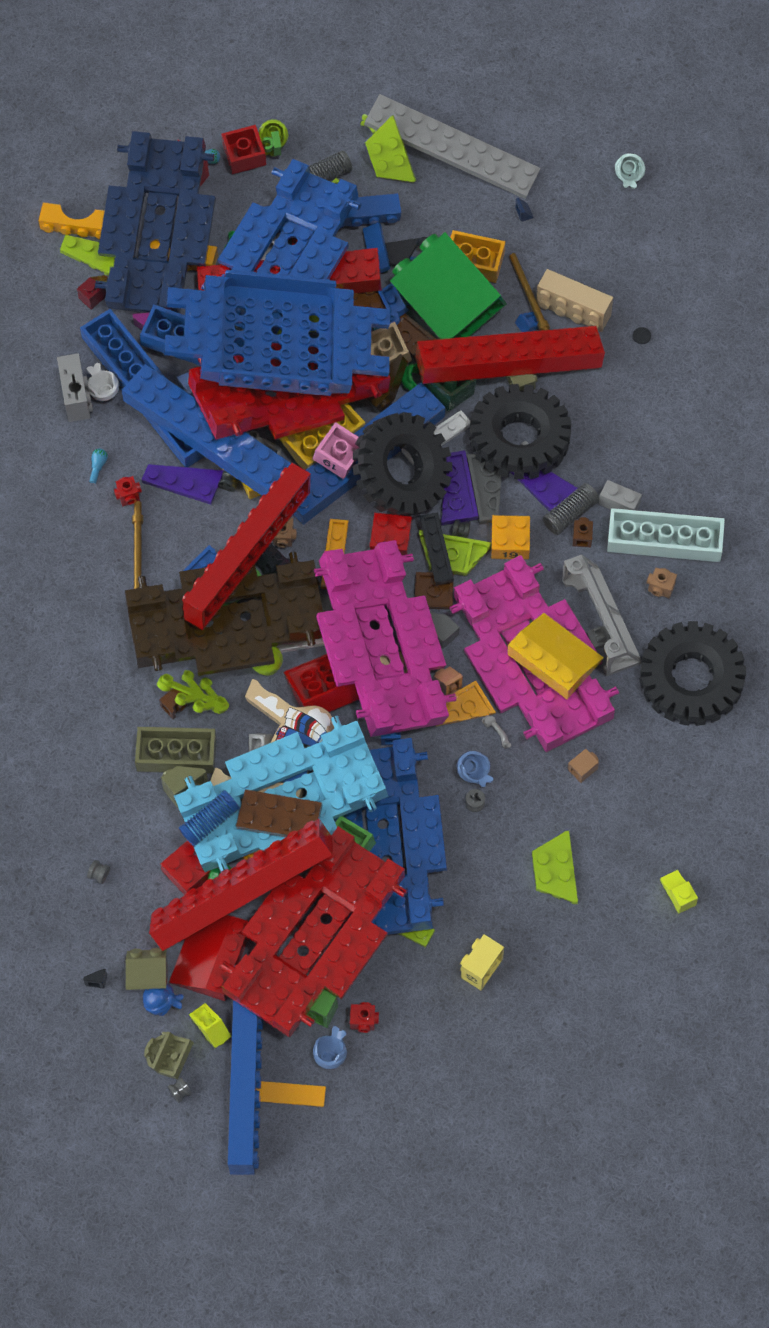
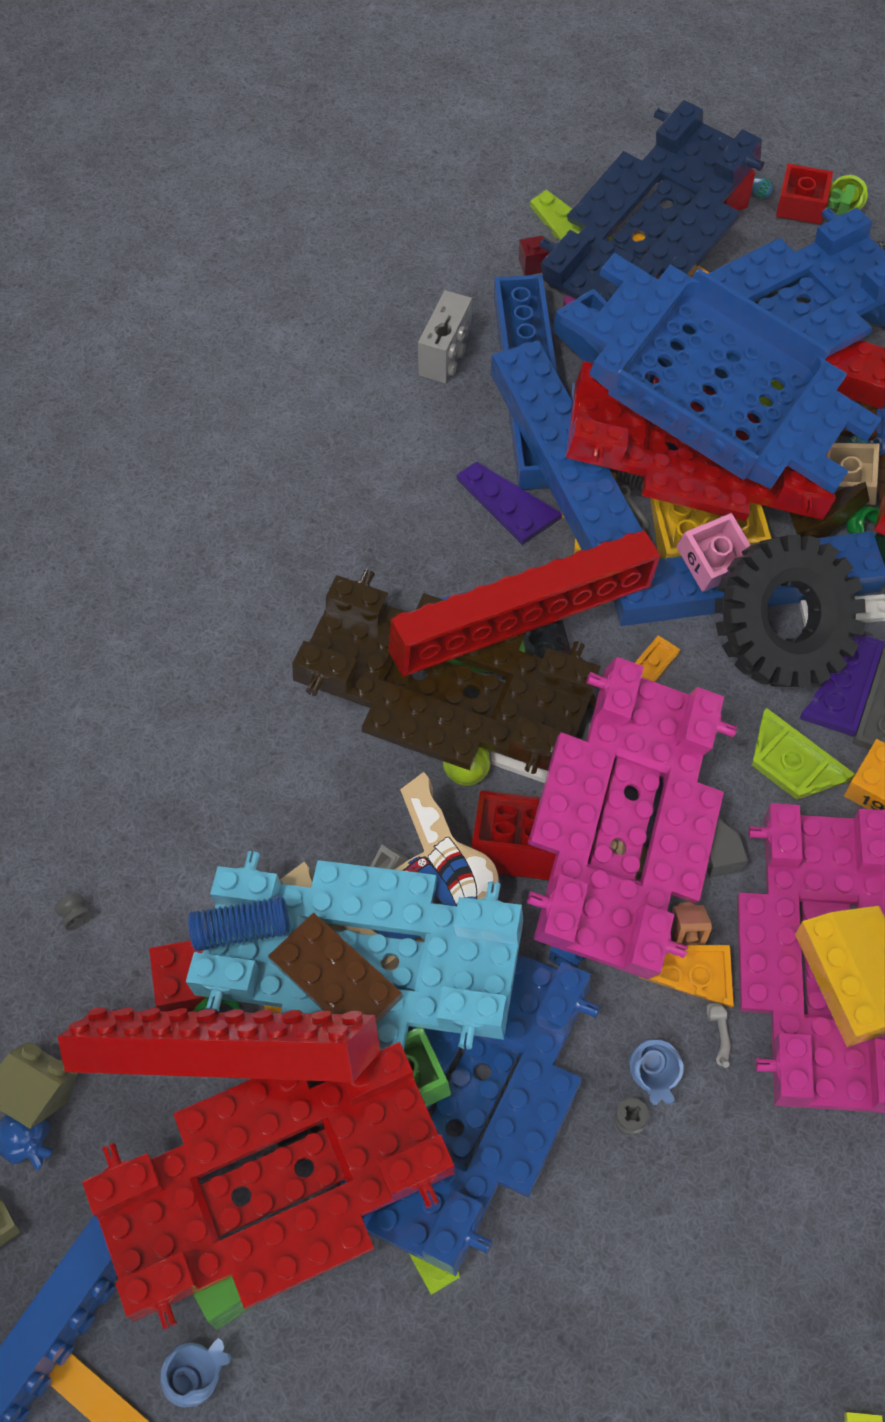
camera: 30 degrees right, 5 degrees down
(54, 219) = (543, 169): light orange arch -> none
(98, 459) = (423, 427): dark azure piece -> none
(102, 384) = (478, 349): white hat -> none
(127, 491) = (431, 477): red brick -> none
(137, 520) = (421, 518): pearl gold bar -> none
(169, 705) = (318, 749): reddish brown brick -> none
(171, 747) = (275, 810): olive brick -> none
(174, 780) = (241, 841): olive slope -> none
(195, 694) = (366, 778): lime plant -> none
(203, 954) = (128, 1112): red slope -> none
(210, 1025) = (57, 1220): neon yellow arch -> none
(228, 482) = (557, 528): pearl dark grey wheel -> none
(286, 535) = (589, 623): medium nougat brick -> none
(363, 1017) = (260, 1345): red brick -> none
(390, 528) = (737, 686): red brick -> none
(436, 548) = (775, 743): black tile -> none
(436, 595) = (745, 794): reddish brown tile -> none
(461, 529) = (824, 736): pearl dark grey wheel -> none
(481, 962) = (494, 1378): light yellow brick -> none
(555, 868) = (691, 1294): lime wing -> none
(583, 765) = (820, 1158): medium nougat brick -> none

